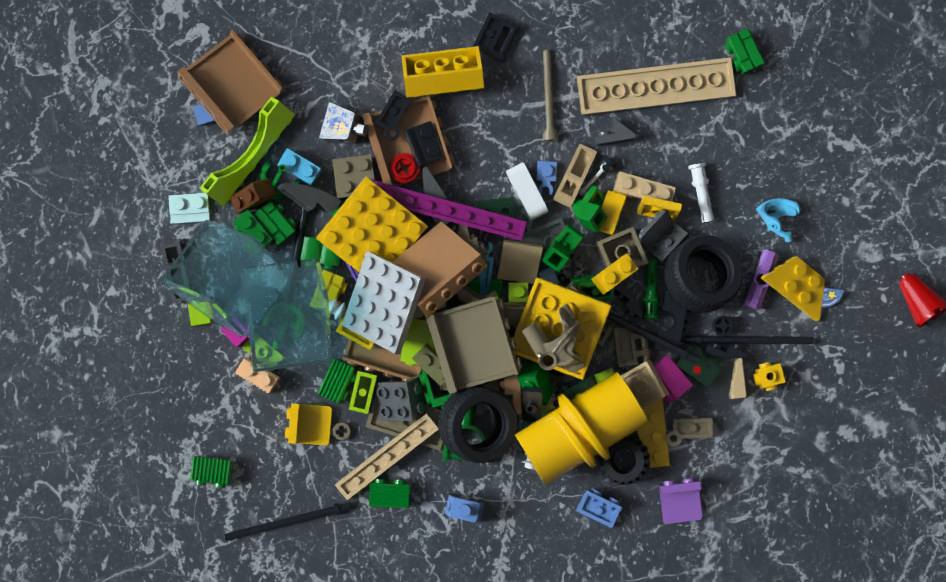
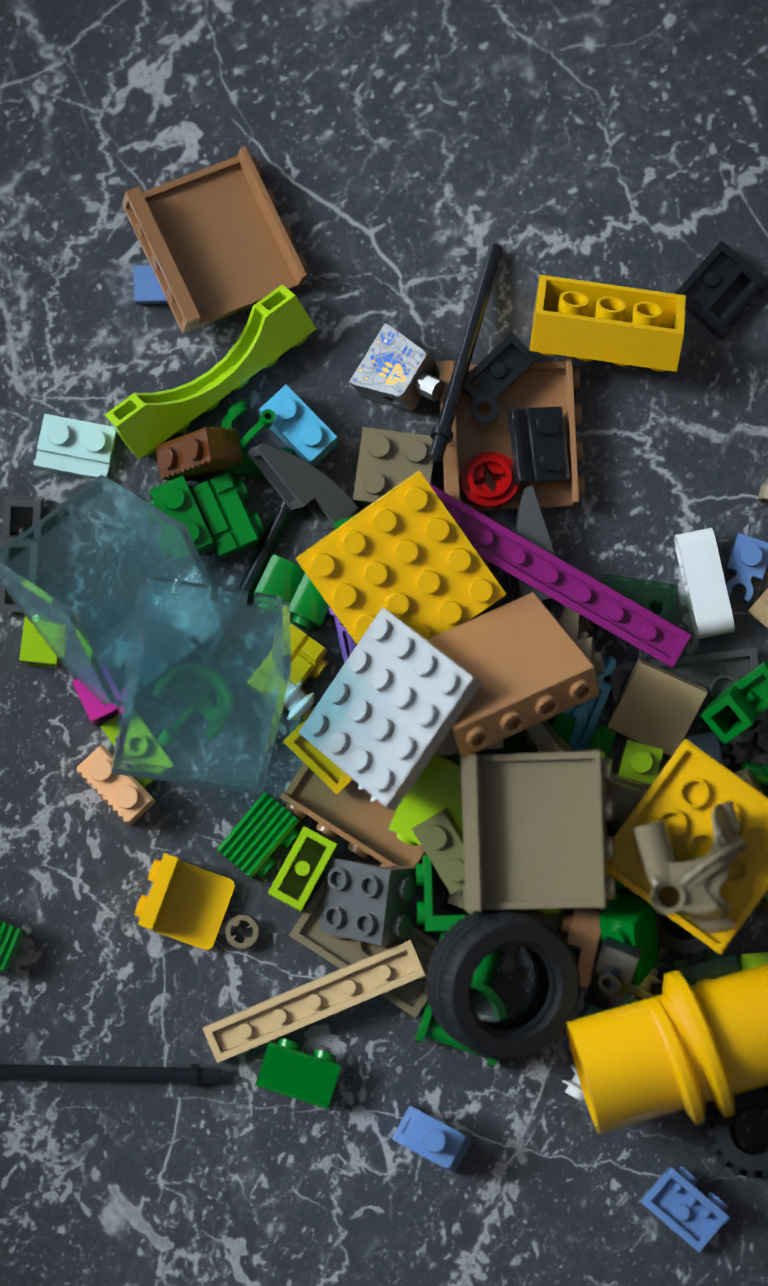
camera: 15 degrees right, 5 degrees down
(373, 153) = (442, 432): none -> black bar

